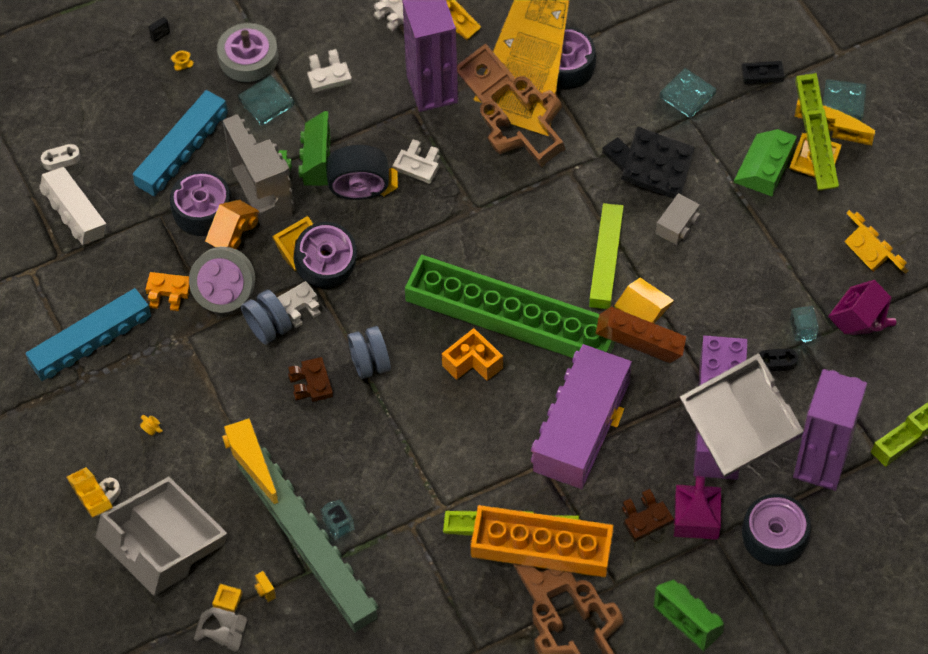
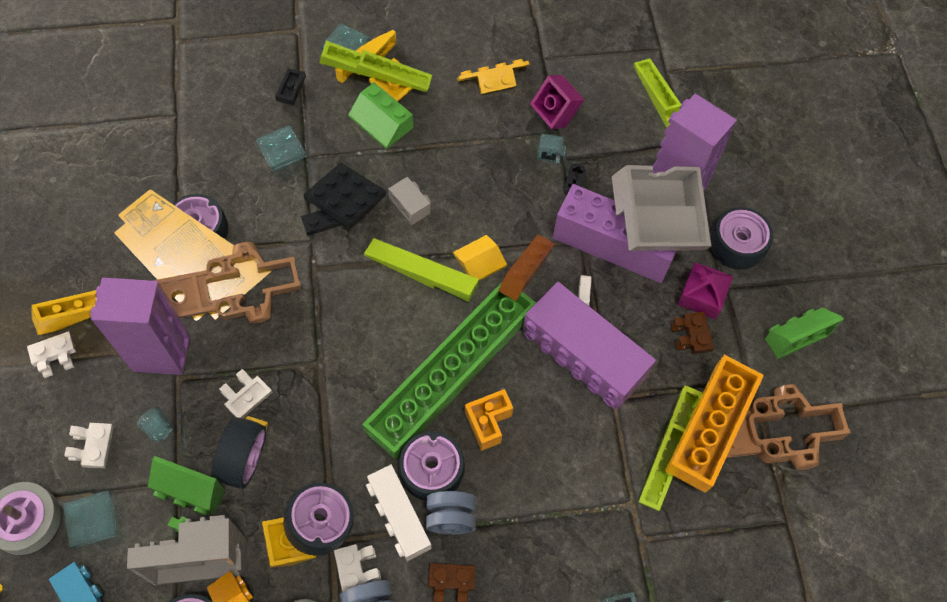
camera: 75 degrees left, 5 degrees up
(355, 315) = (399, 513): none -> white brick
(362, 107) = (154, 424): none -> clear light blue piece
(409, 326) = (431, 447): none -> lavender wheel
(644, 403) = (584, 289): none -> white beam

